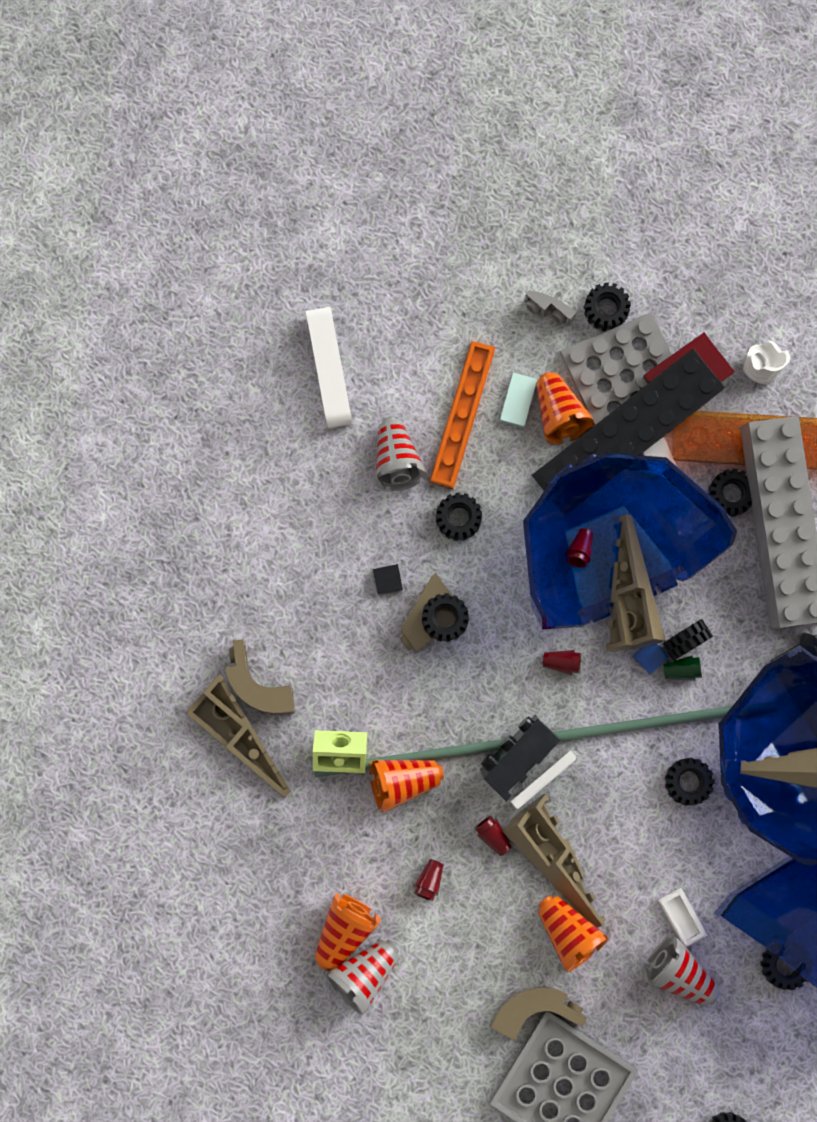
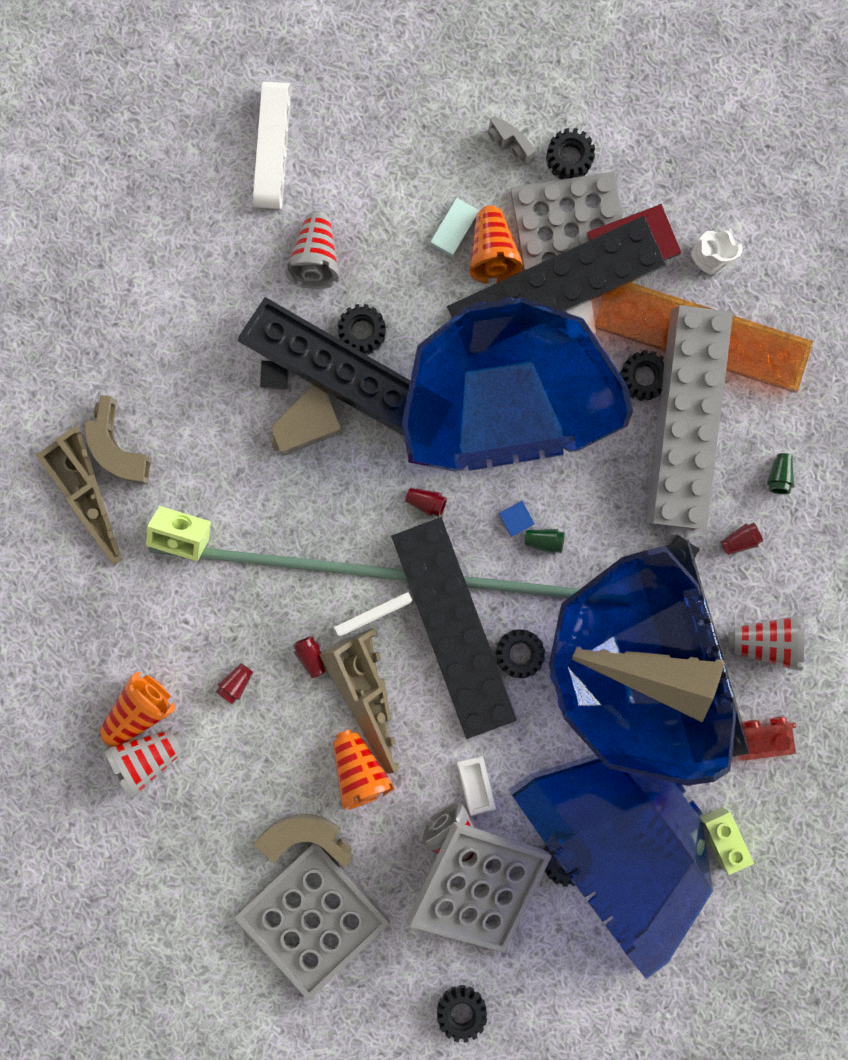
camera: 15 degrees right, 5 degrees up
(402, 780) = (234, 578): orange cone -> none
(442, 557) = (327, 363): none -> black plate
(452, 603) = (312, 410): black tyre -> none
(462, 415) = (394, 228): orange tile -> none
(518, 755) = (353, 584): black wedge -> none
(580, 549) = (474, 392): dark red cone -> none
(621, 774) = (454, 628): none -> black plate
(635, 614) = (512, 468): dark tan wedge -> none
(687, 639) = (557, 511): black tyre -> none
(746, 1026) = (461, 896): none -> light grey piece

